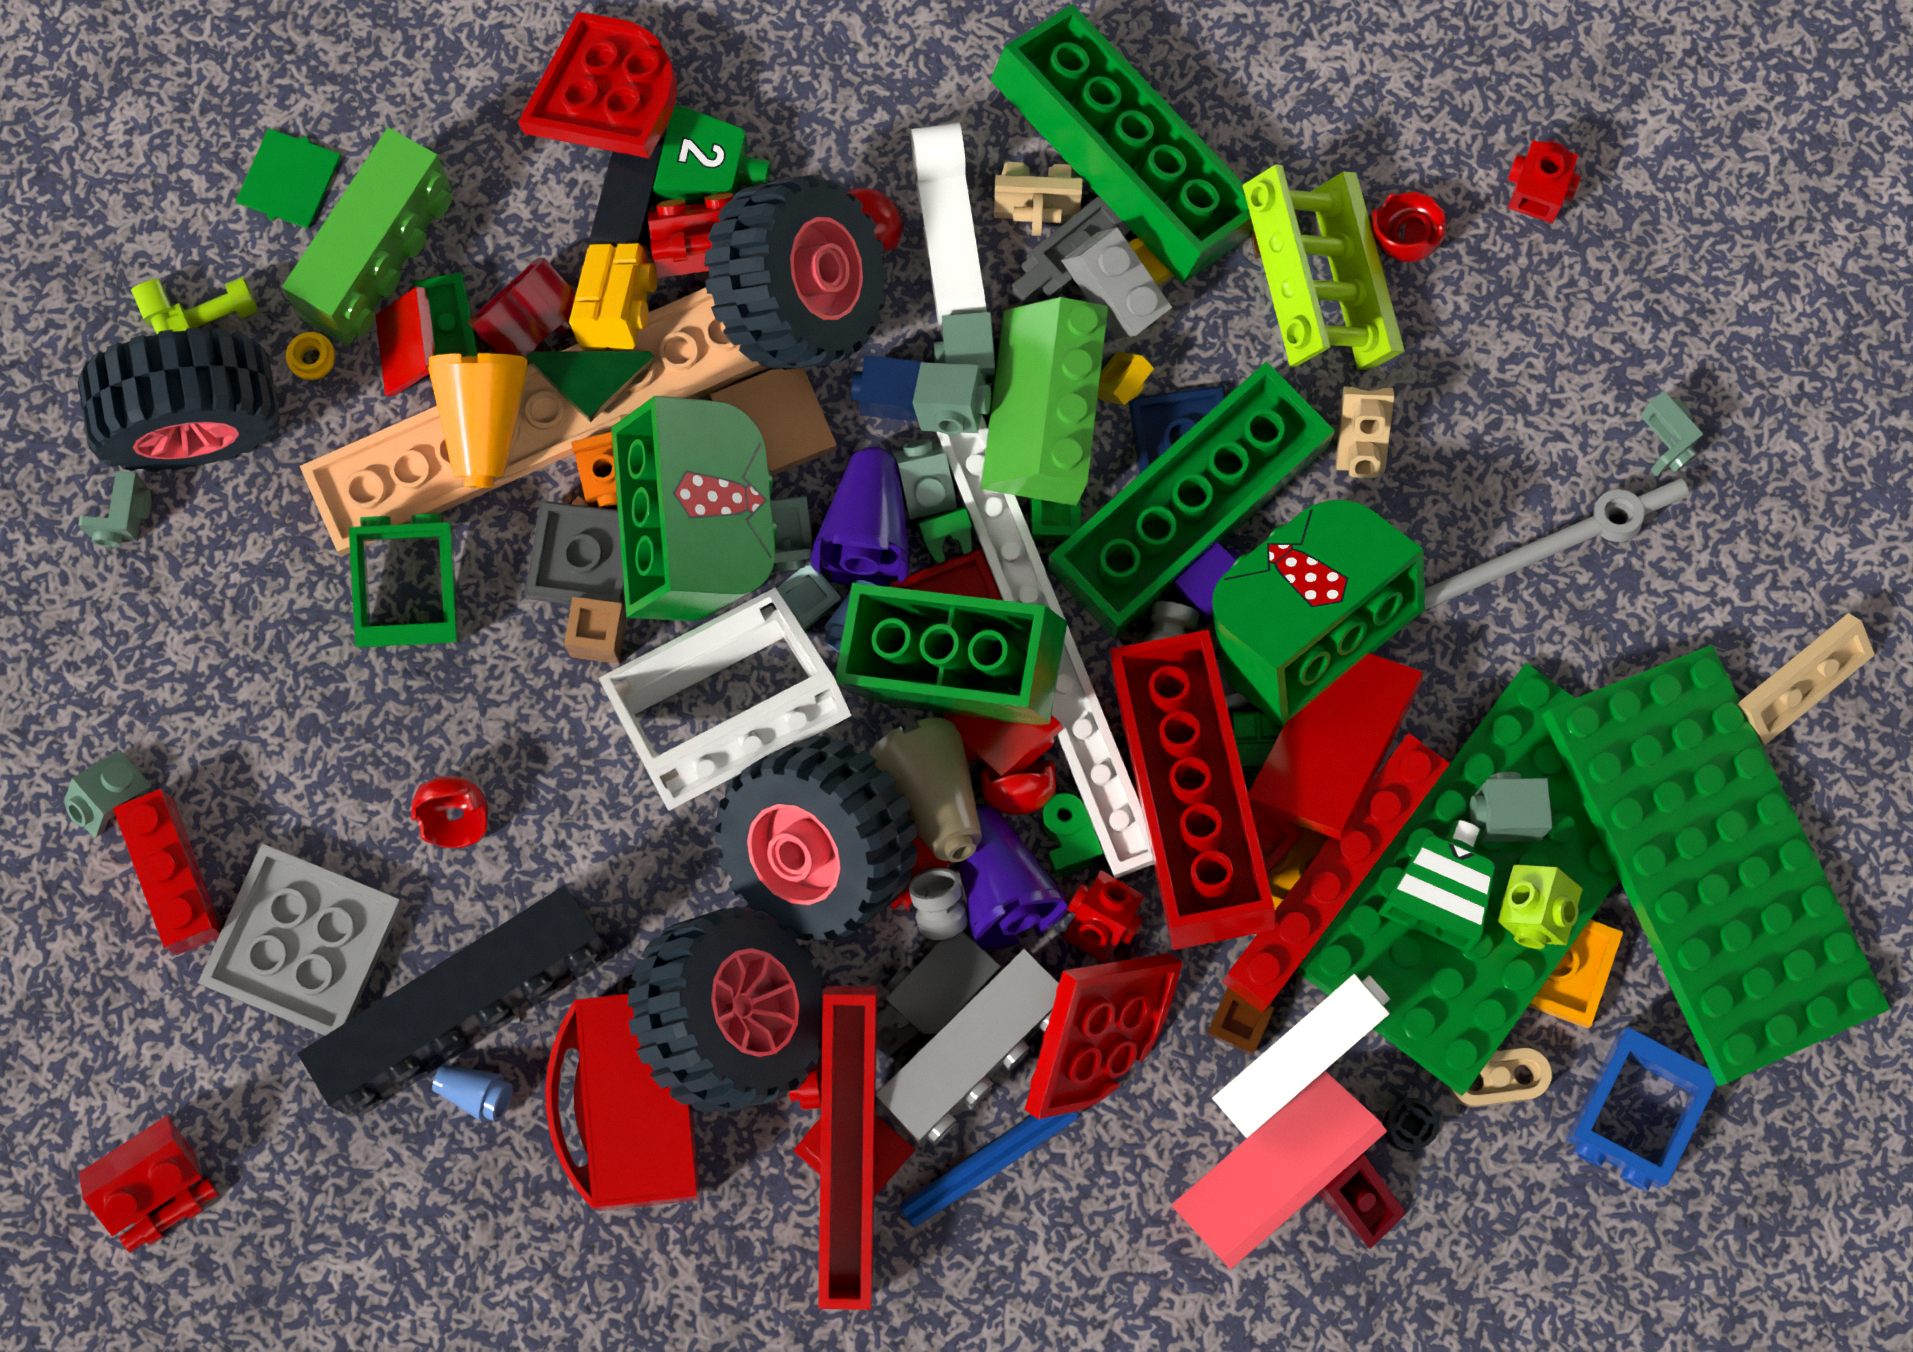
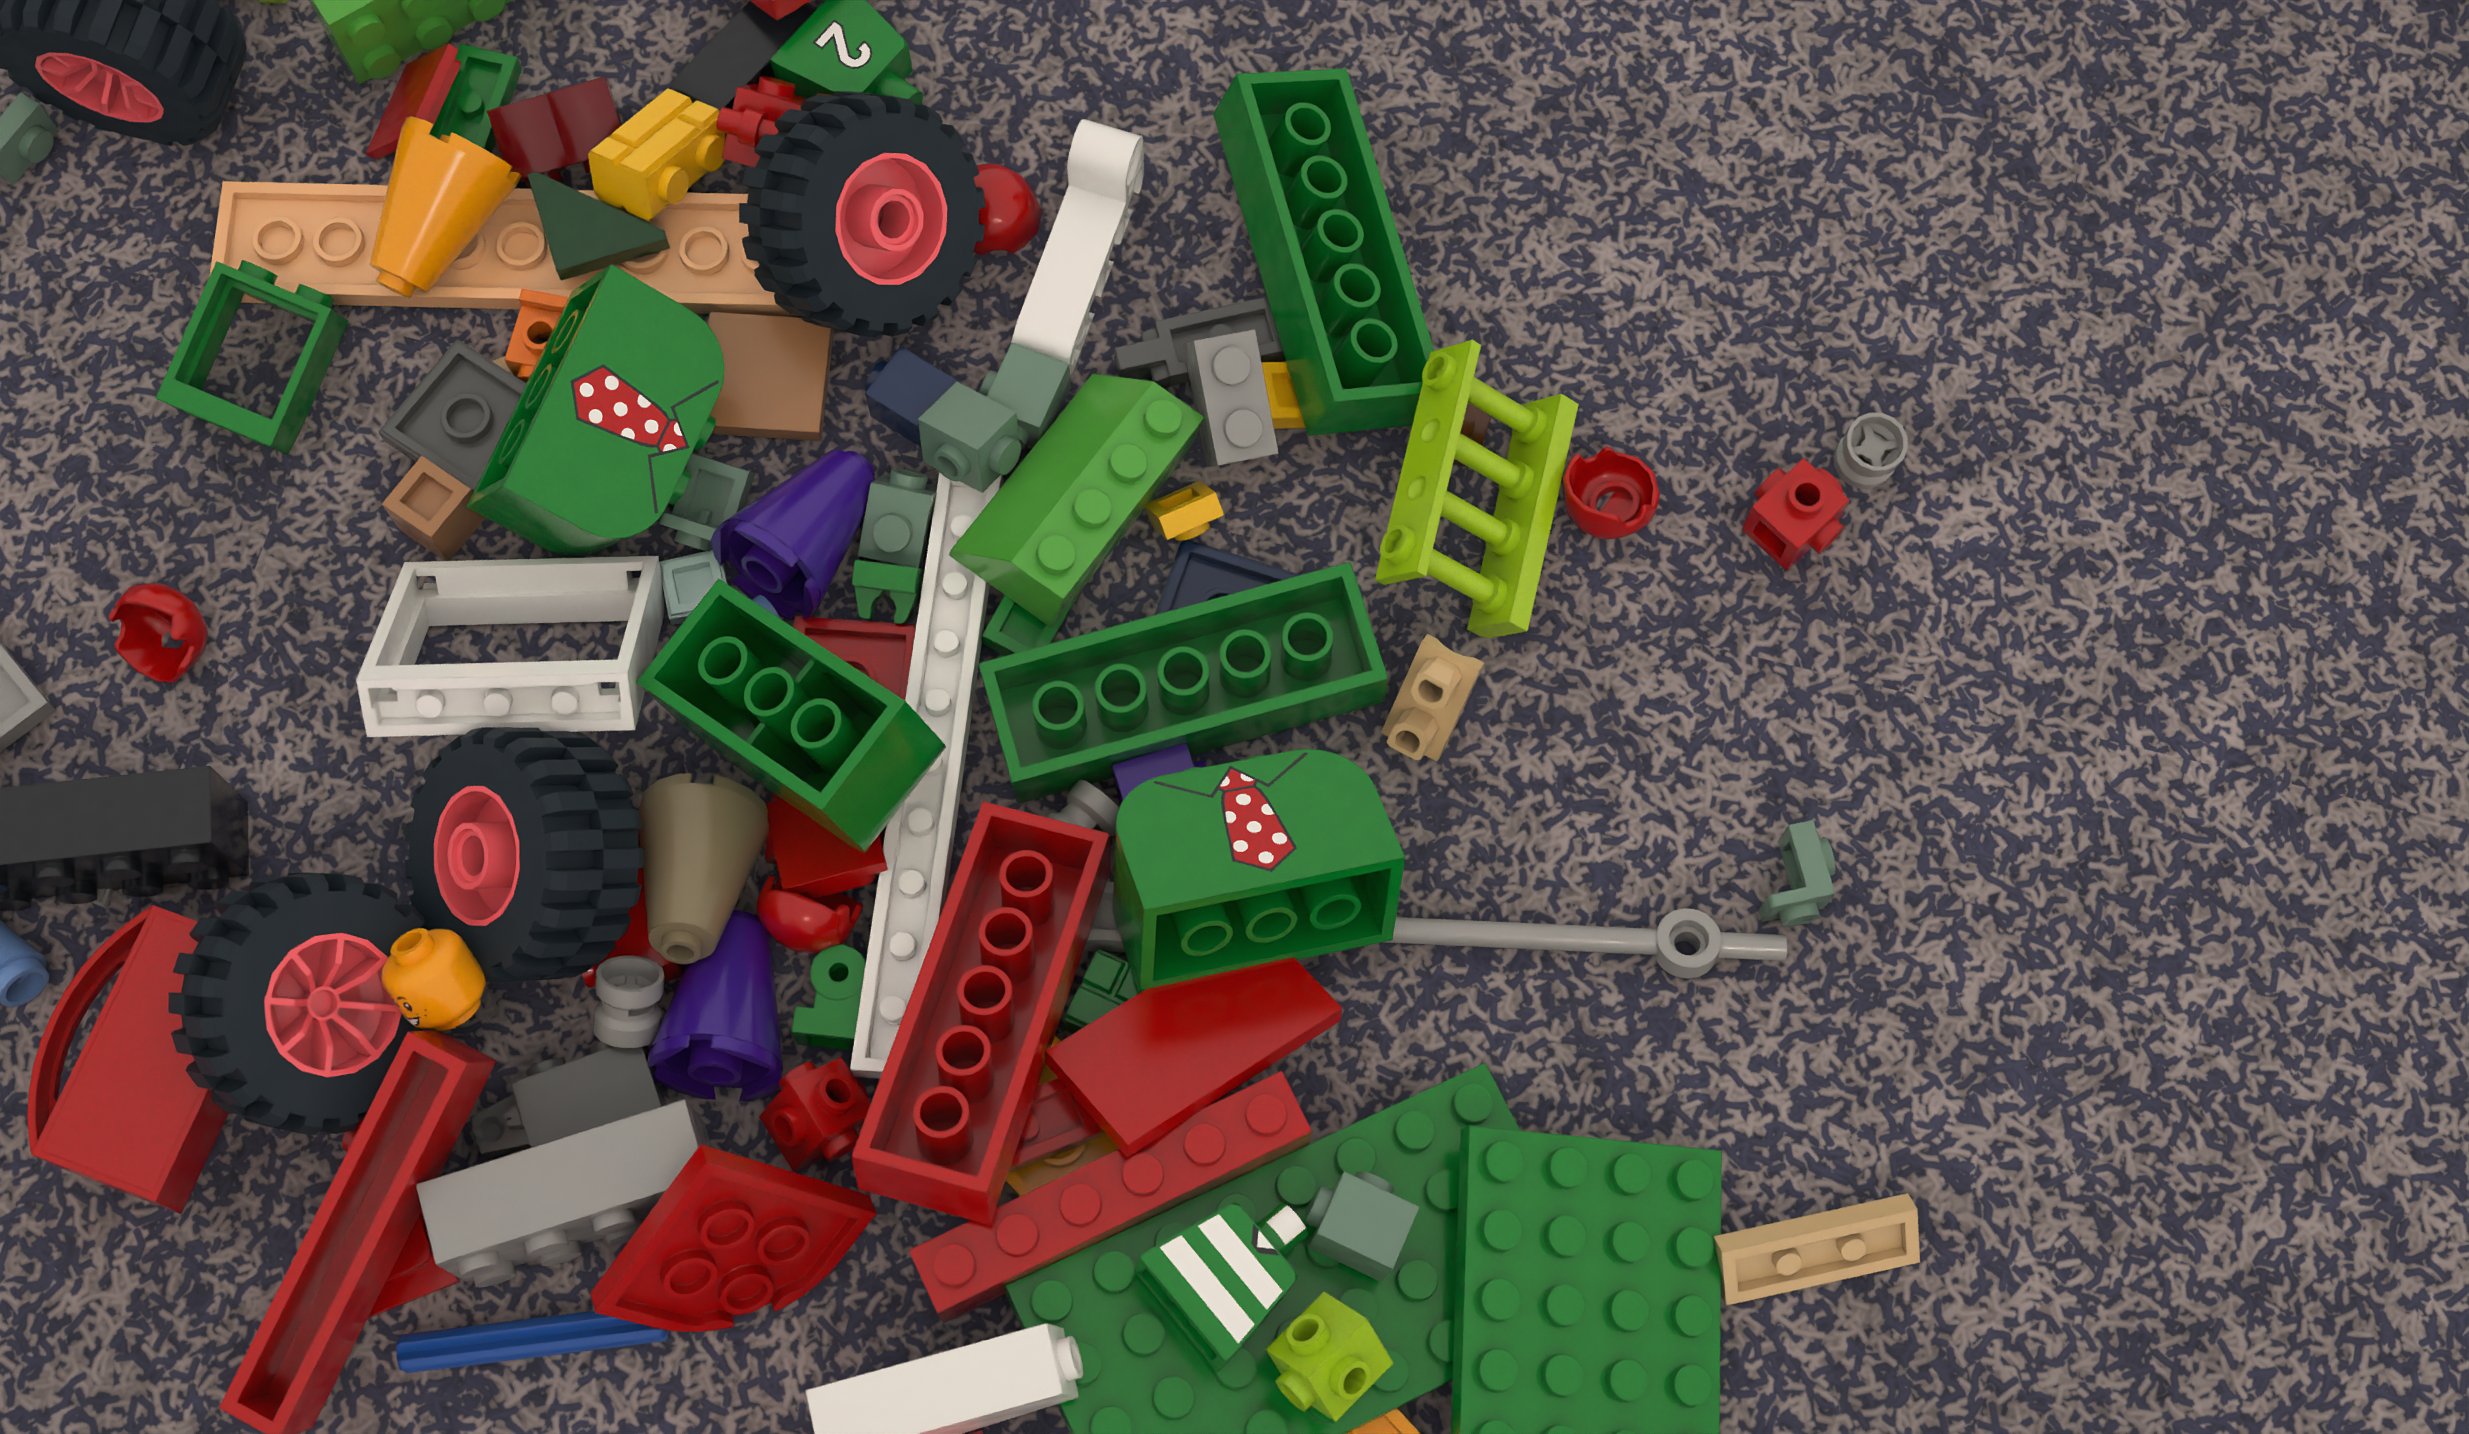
camera: 25 degrees right, 5 degrees down
(304, 343) = (304, 58): yellow plate -> none
(812, 952) = (435, 980): none -> light orange head
(1037, 198) = (1196, 267): tan hips -> none
(1239, 1023) = (911, 1321): reddish brown plate -> none
(1576, 102) = (1877, 440): none -> light grey wheel

